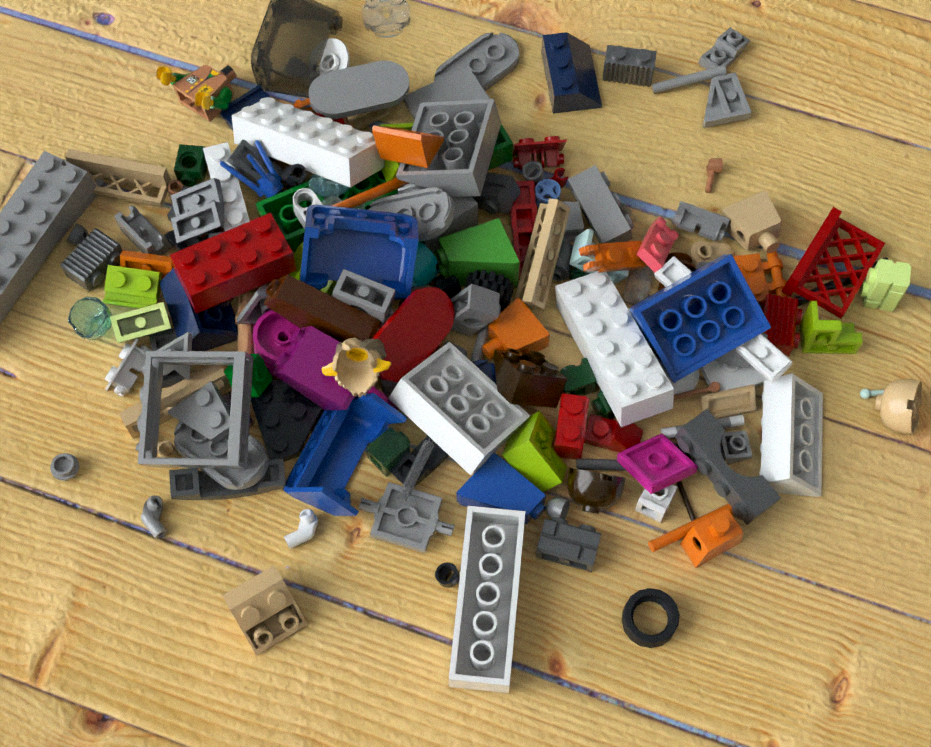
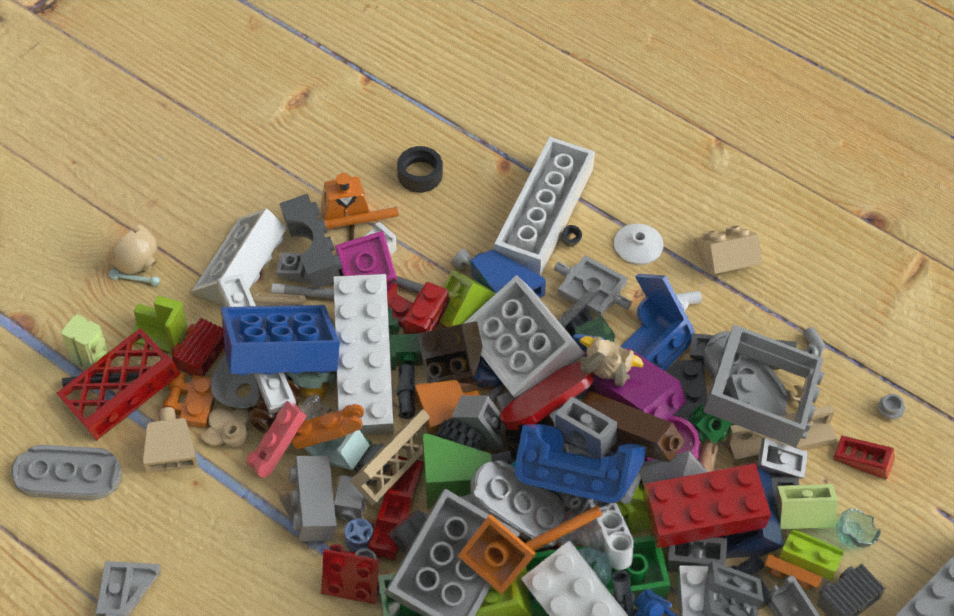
camera: 165 degrees left, 10 degrees down
(88, 414) = (871, 467): none -> red slope
(121, 377) = (832, 471): white hinge -> none
(370, 612) = (638, 251): none -> white dish
(558, 341) = (406, 391): none -> black pin
(568, 544) = (464, 230): dark grey brick -> none
(594, 489) = (424, 260): dark brown cylinder -> none
(712, 224) = (212, 455): light grey hinge -> none
(714, 165) = (175, 521): nougat hand -> none
(831, 184) = (67, 472): none -> light grey tile

